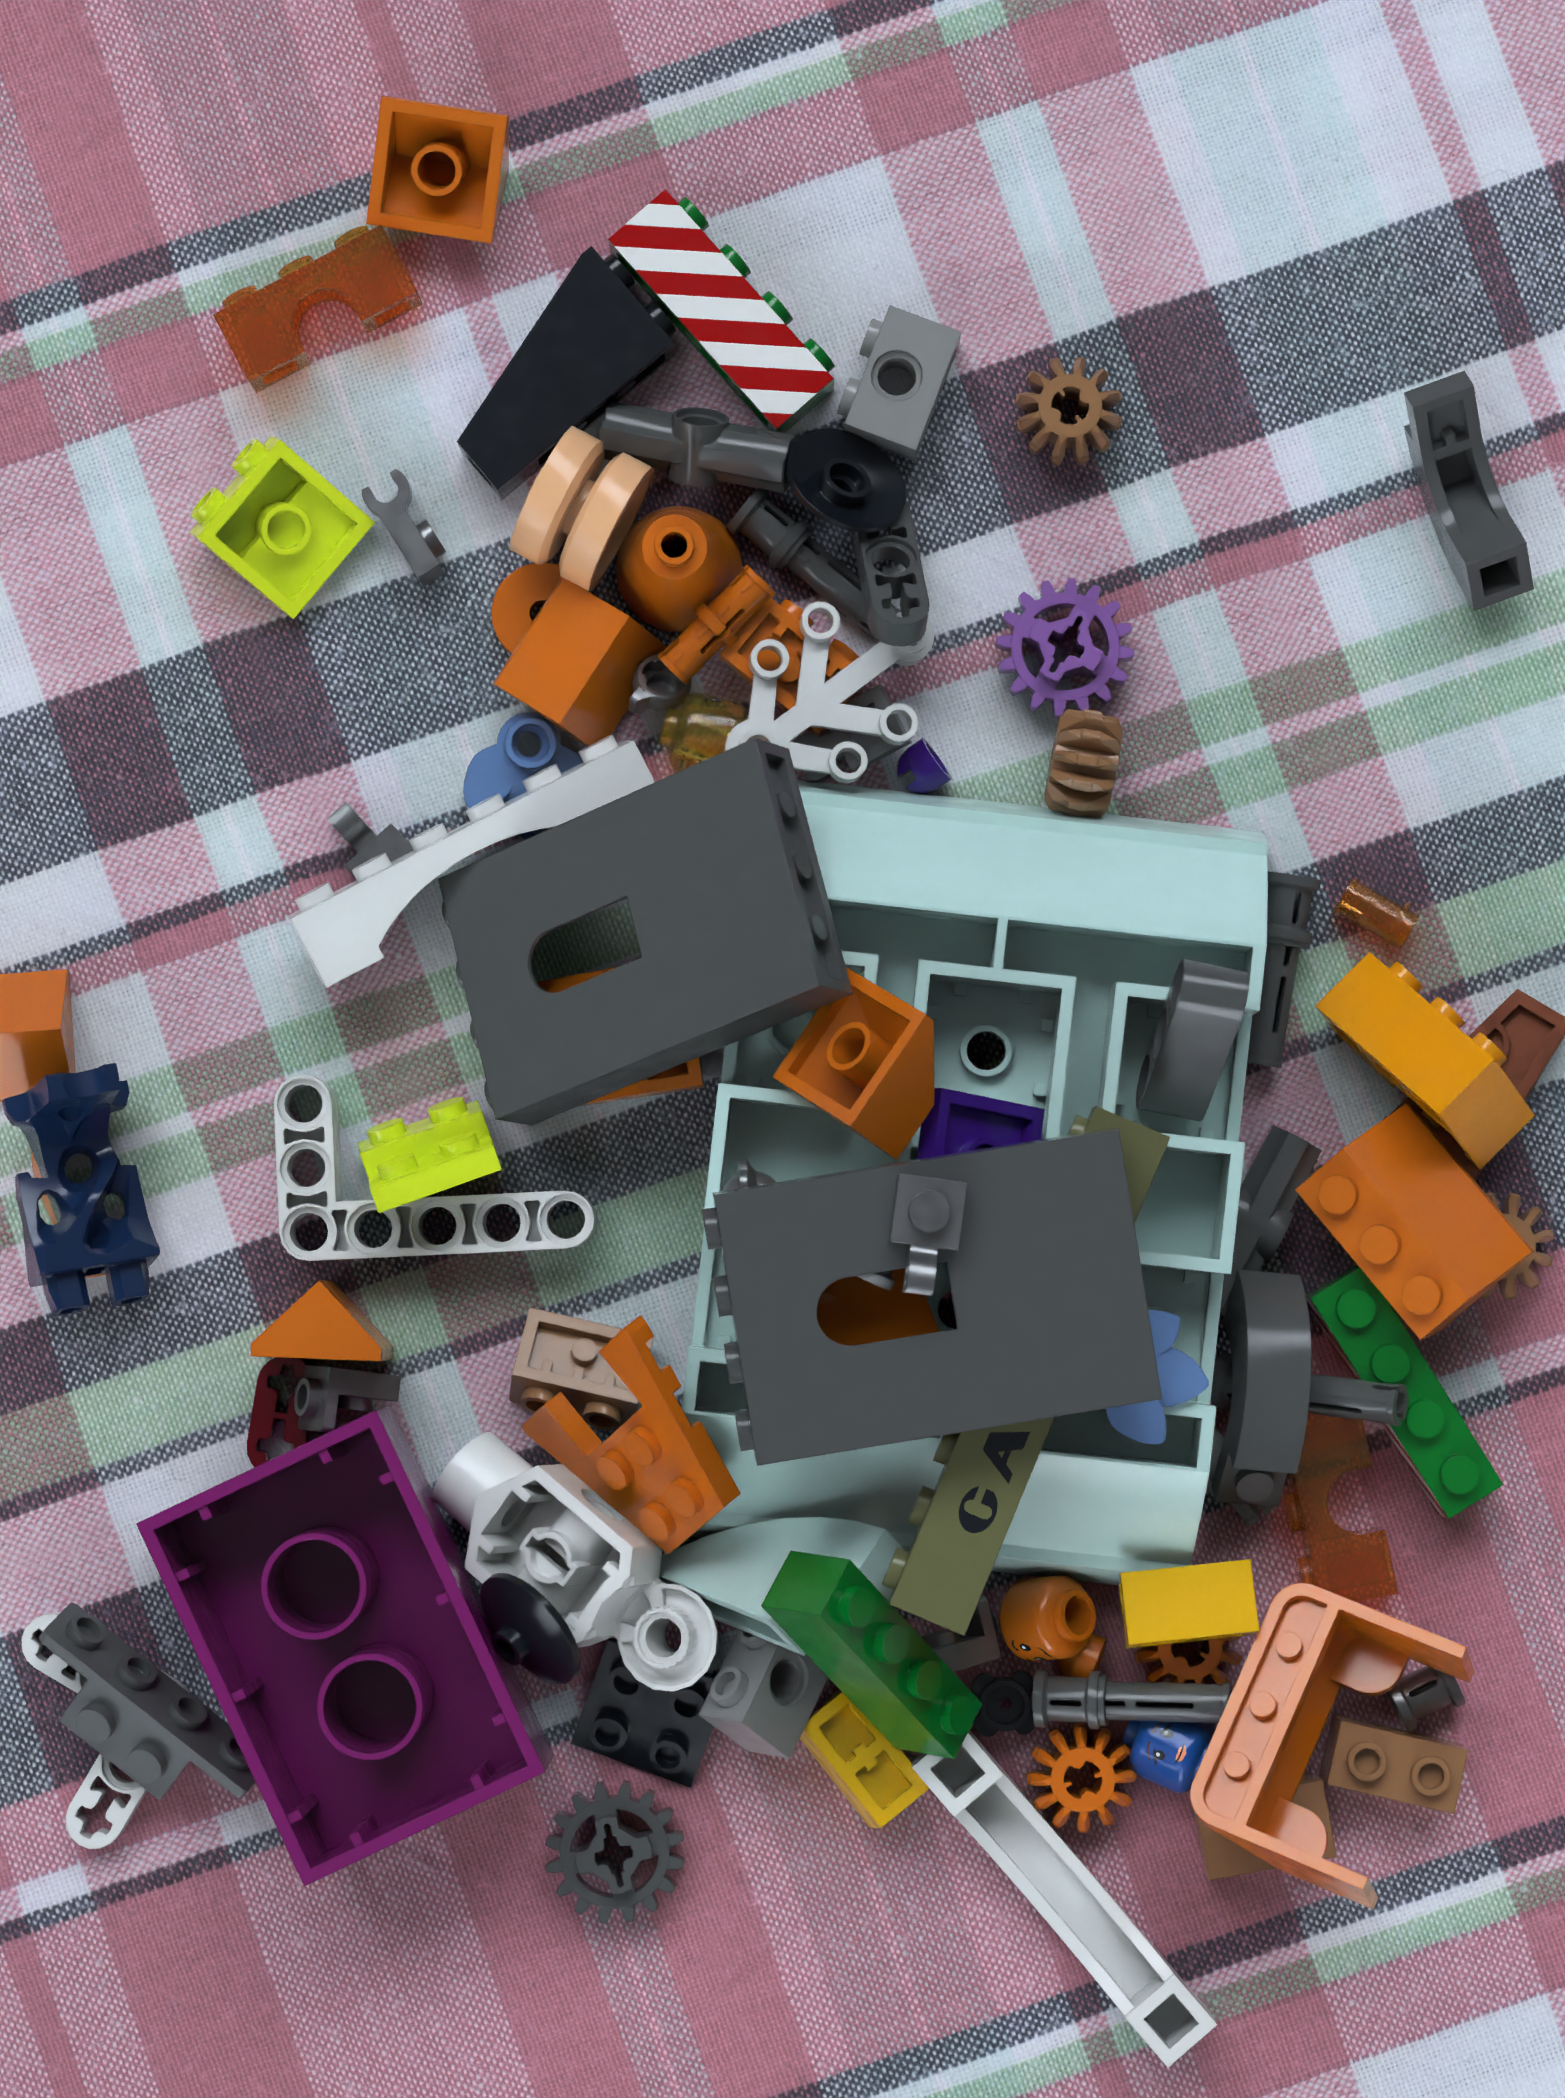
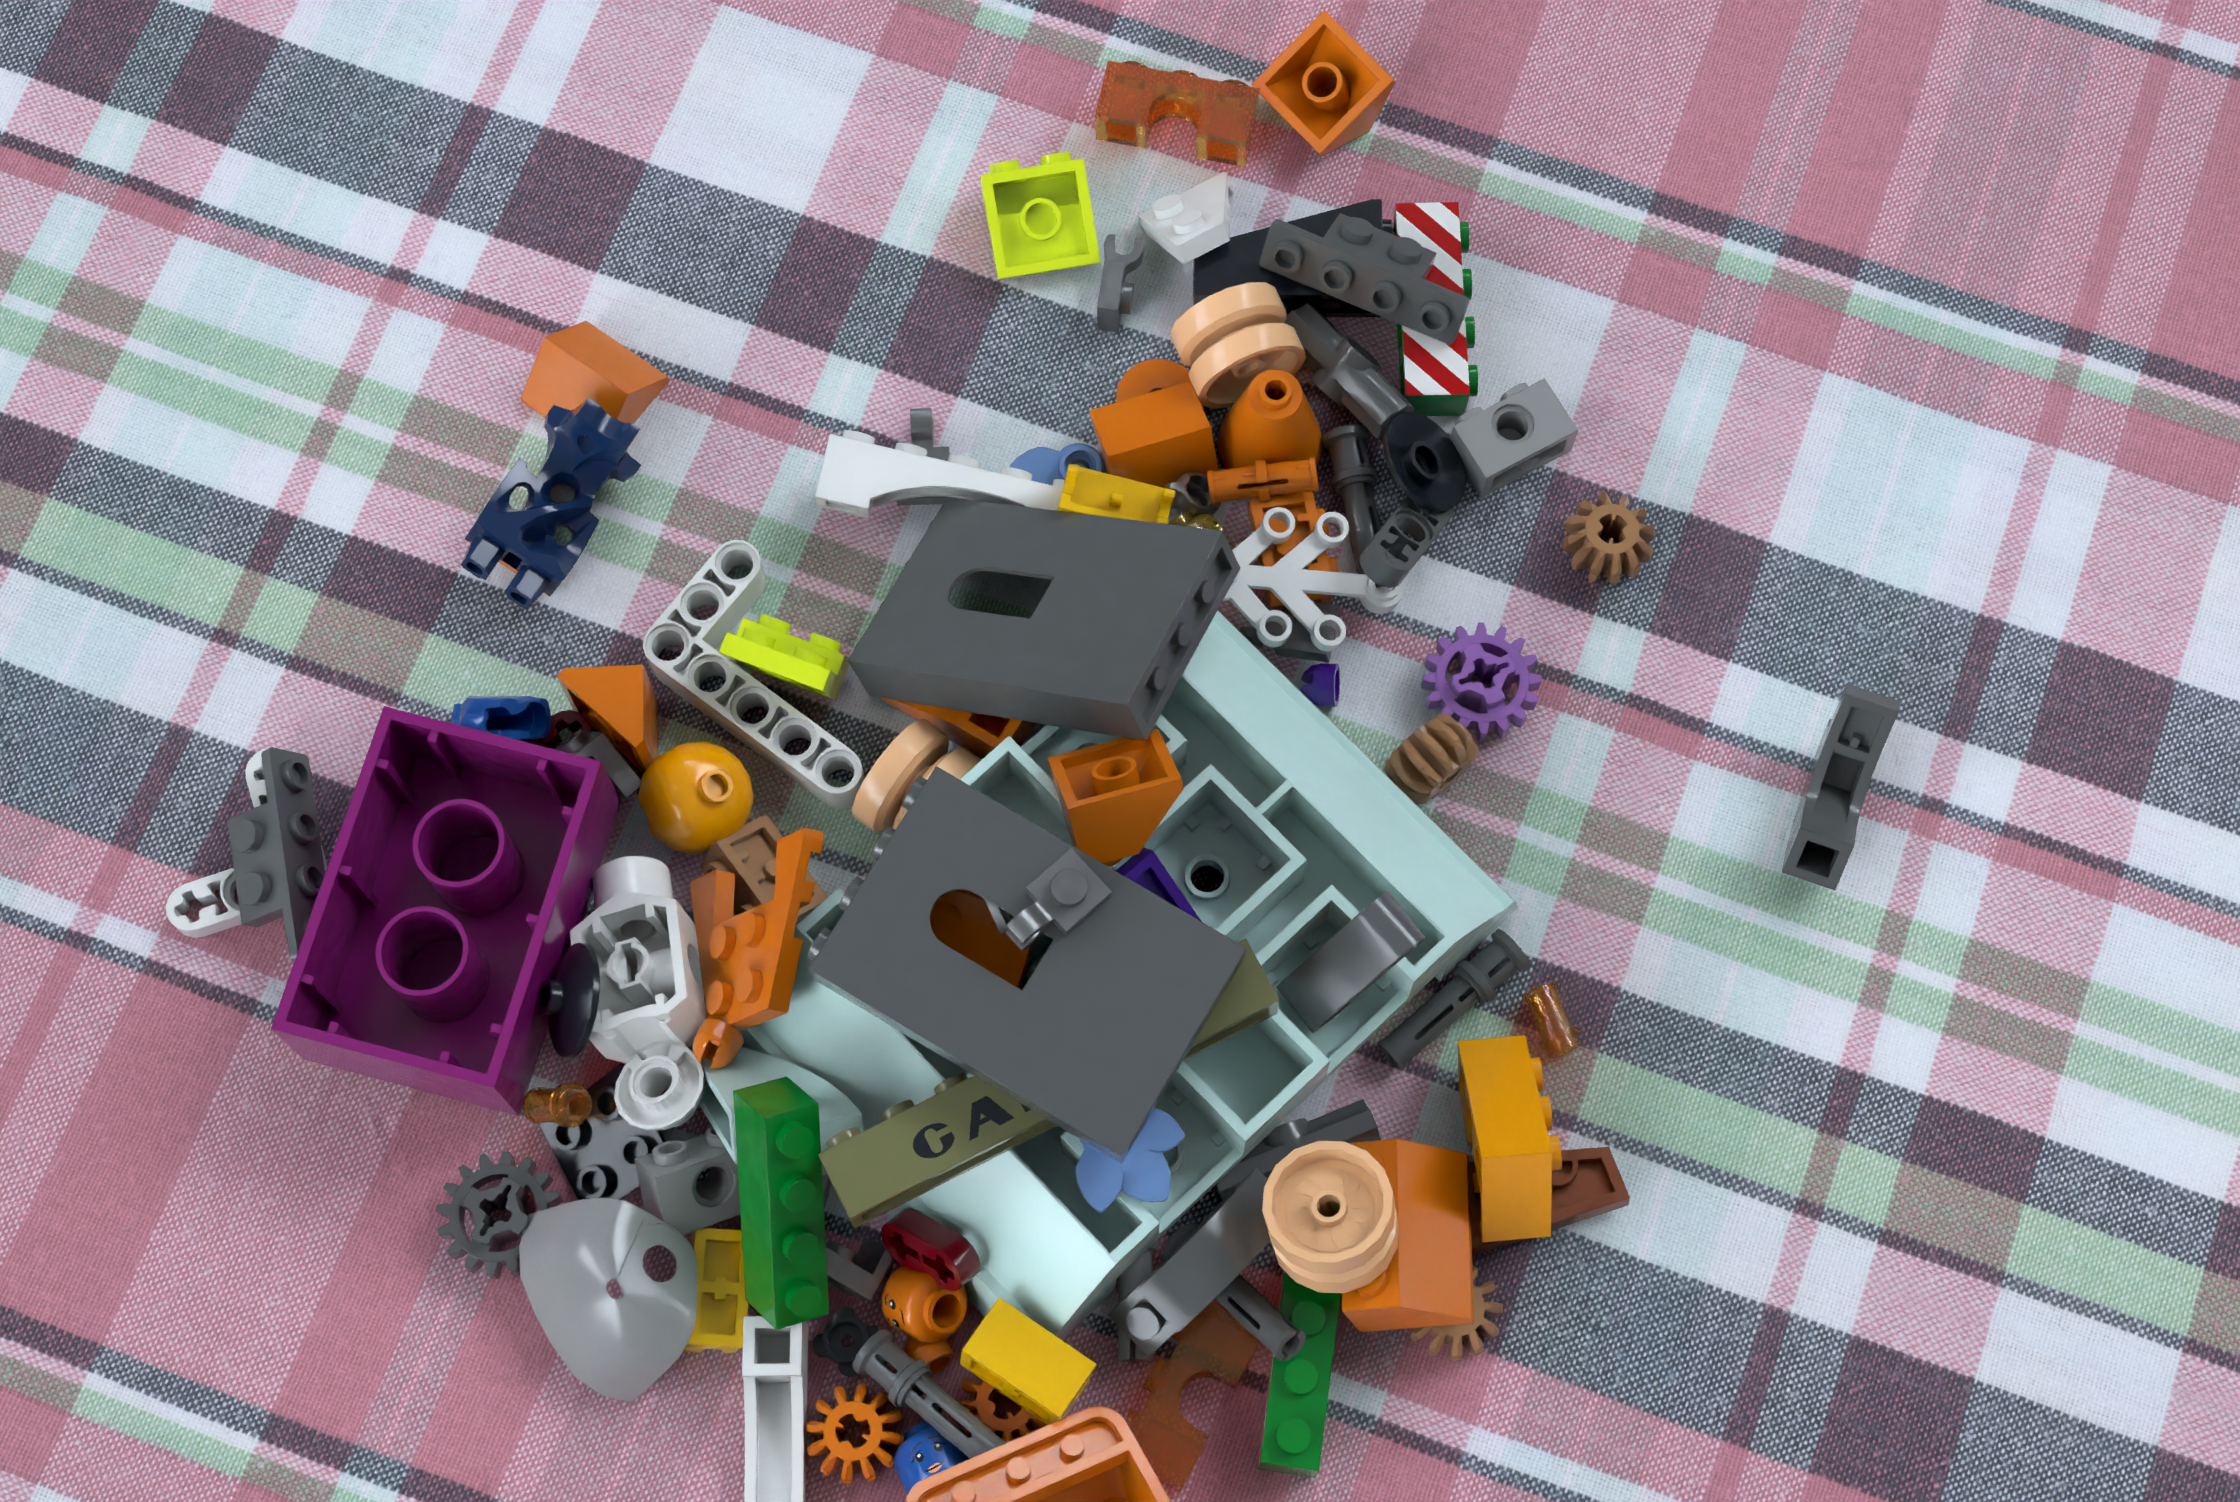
camera: 30 degrees right, 15 degrees down
(220, 1432) = (508, 716): none -> blue animal
(428, 410) = (1191, 221): none -> white wing
(457, 1346) = (695, 796): none -> light orange cylinder
(591, 1716) = (566, 1105): none -> clear orange pin
(606, 764) = (1114, 496): none -> yellow hinge
(646, 333) = (1368, 271): none -> dark grey bracket
(660, 1176) = (907, 758): none -> light nougat wheel
(688, 1559) = (717, 1043): none -> orange hinge
(729, 1849) = (605, 1341): none -> light grey piece
(1032, 1575) = (931, 1249): none -> dark red beam
(1316, 1262) = (1331, 1216): none -> light nougat wheel

